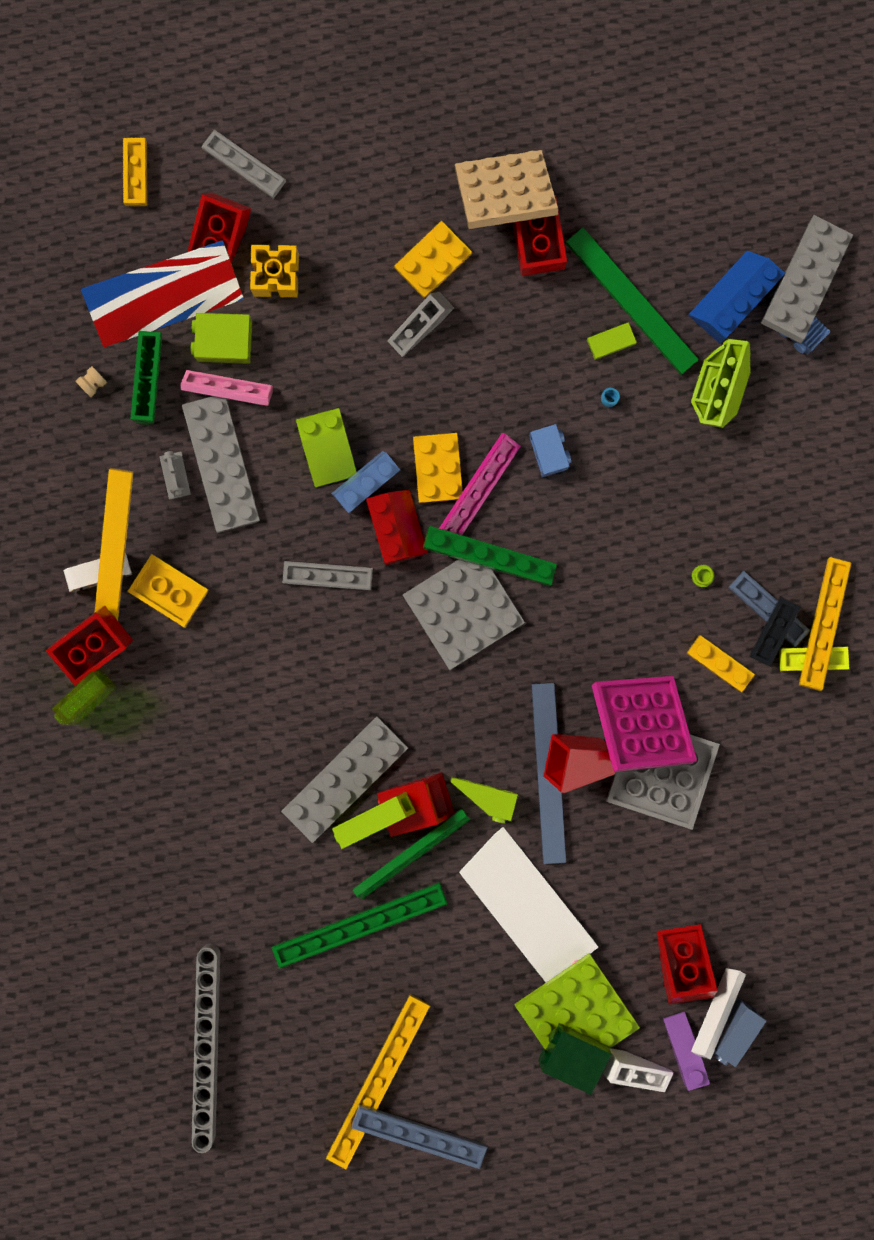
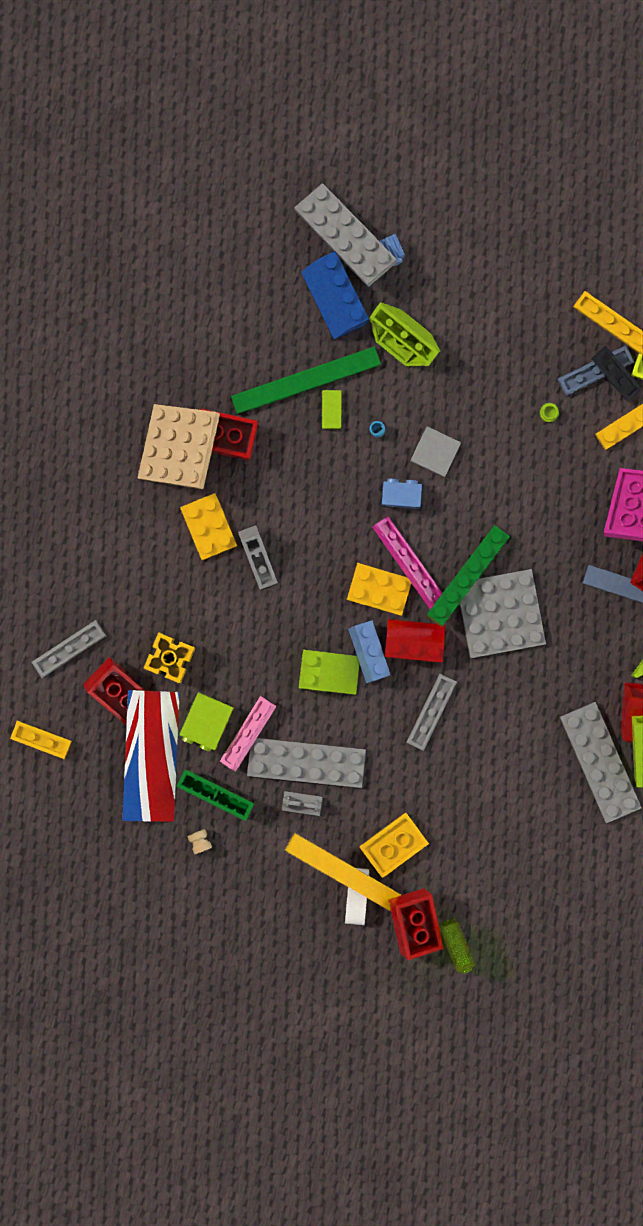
camera: 65 degrees left, 0 degrees up
(610, 470) = (435, 451): none -> light grey tile

